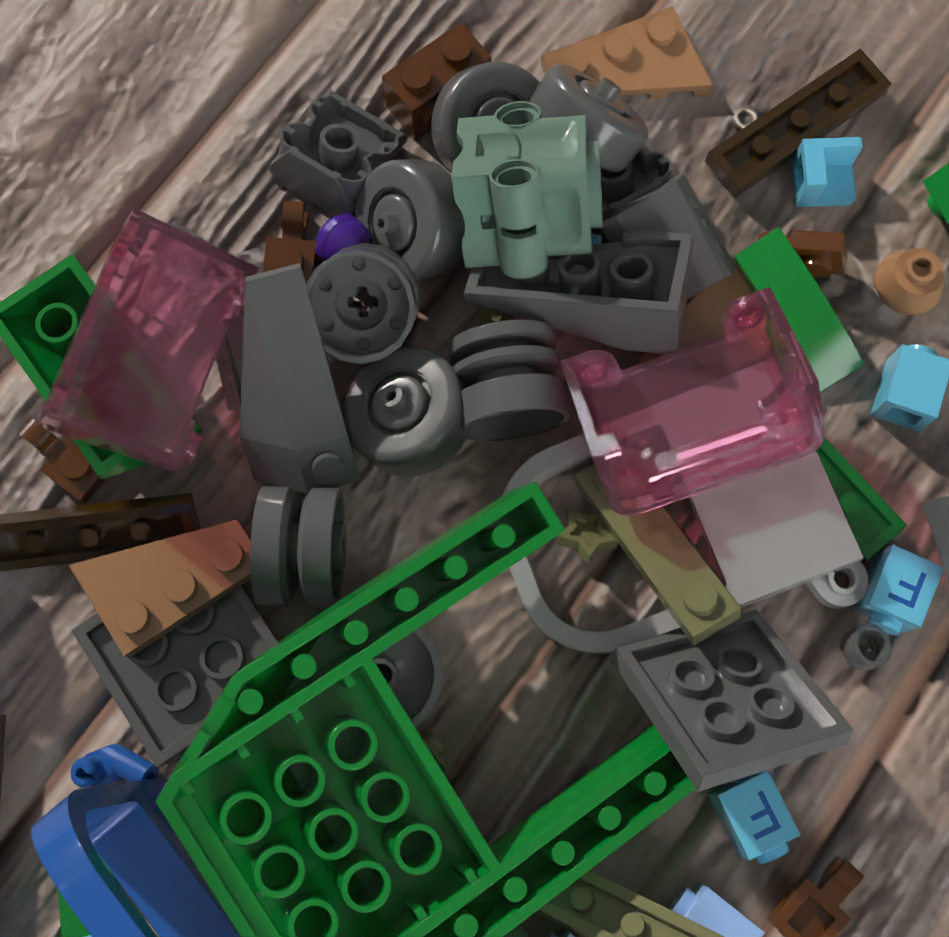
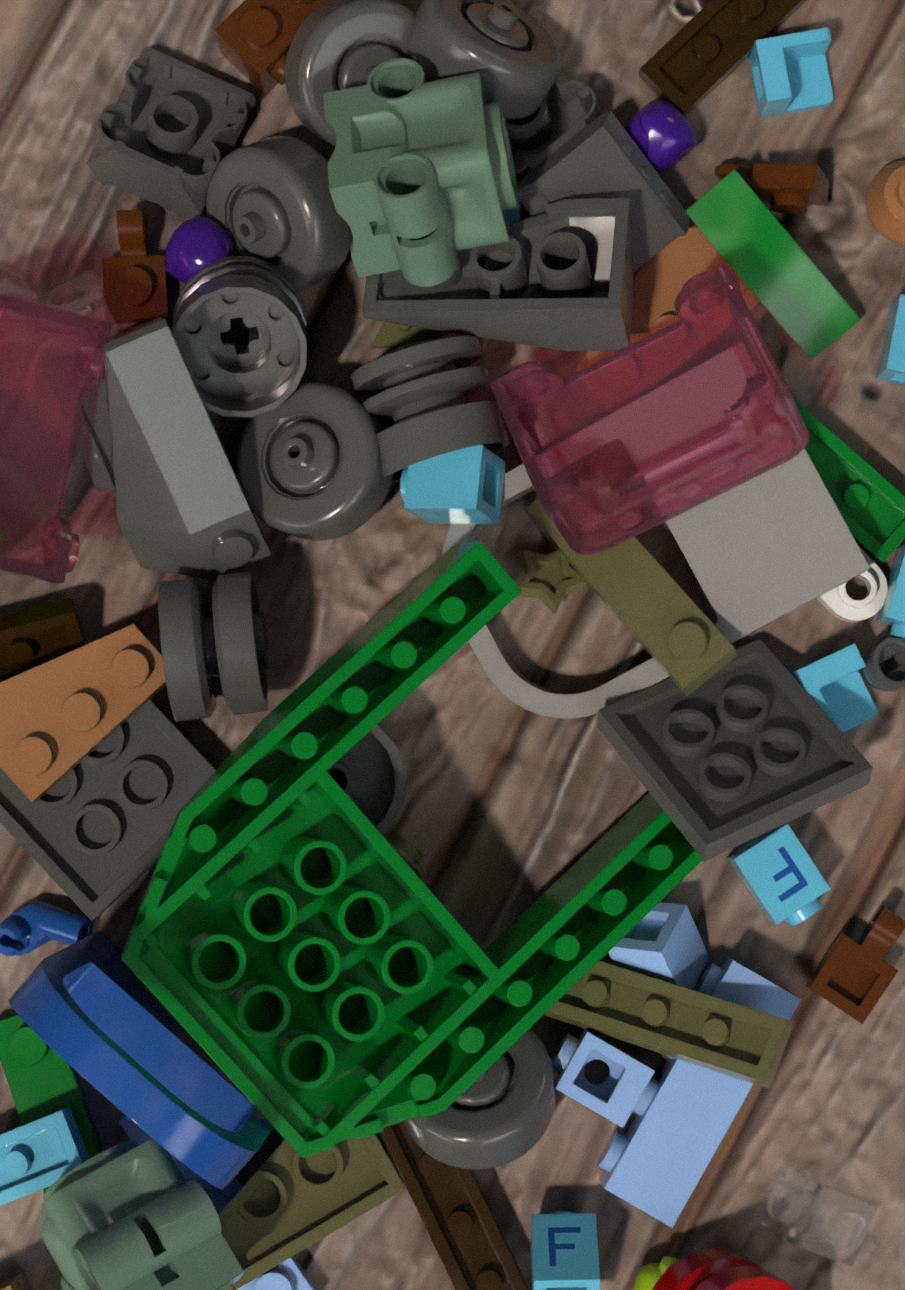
camera: 10 degrees left, 10 degrees up
(519, 444) = (455, 487): none -> medium azure brick
(646, 865) = (664, 946): none -> light blue panel
(721, 201) = (661, 134): none -> dark purple piece
(820, 658) = (839, 687): none -> medium azure panel

